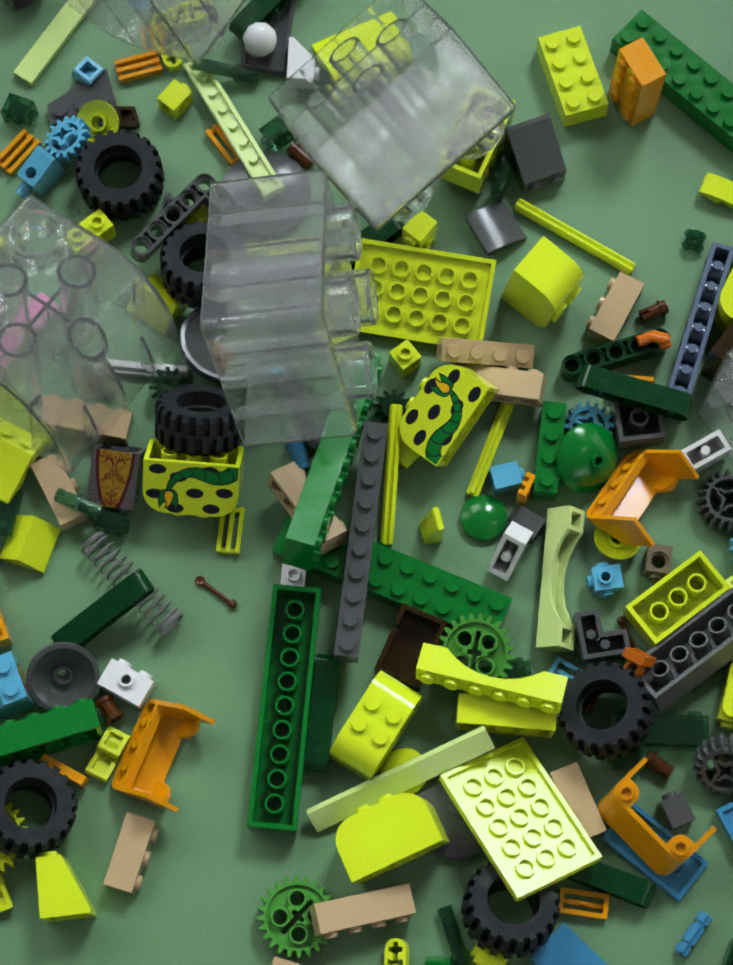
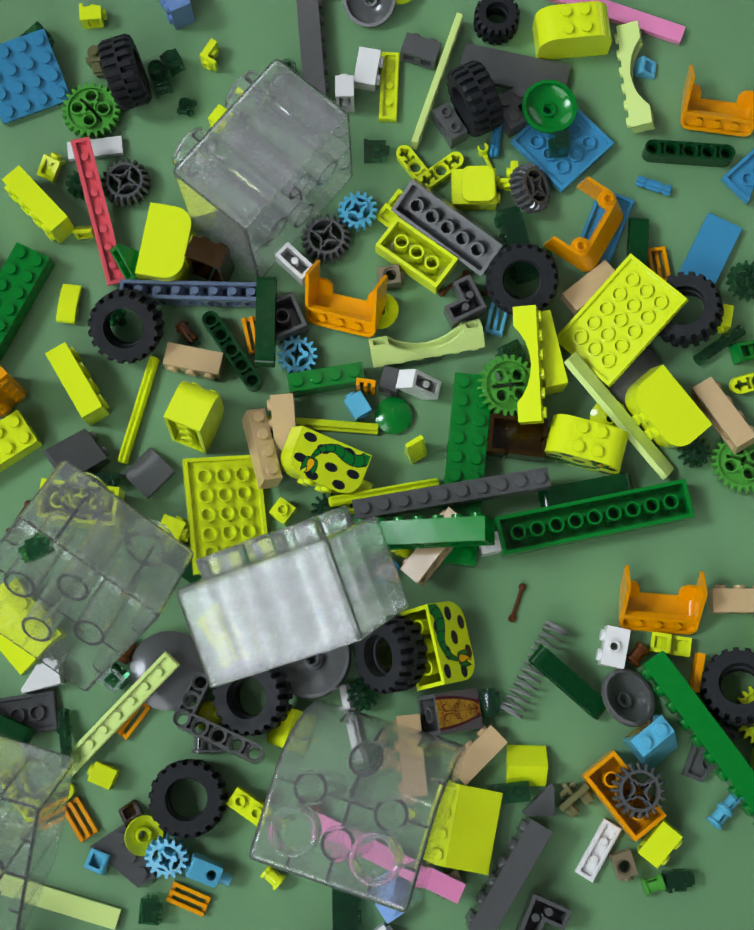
camera: 105 degrees left, 5 degrees up
(77, 502) = (487, 732): clear green axle -> none
(241, 511) = (468, 598): neon yellow tile -> none
(259, 39) = (31, 716): white hair -> none
(320, 860) = (700, 455): none -> clear green gear
(577, 457) = (325, 347): green dish -> none
(612, 576) = (416, 310): medium azure brick -> none
(621, 174) = (77, 383): none -> neon yellow brick
(638, 658) = (474, 265): orange tile -> none
(654, 336) = (211, 321): orange arm -> none
(658, 765) = (542, 236): reddish brown pin -> none
(675, 810) = (572, 217): dark grey brick -> none
(689, 259) = (108, 342): none -> black tyre

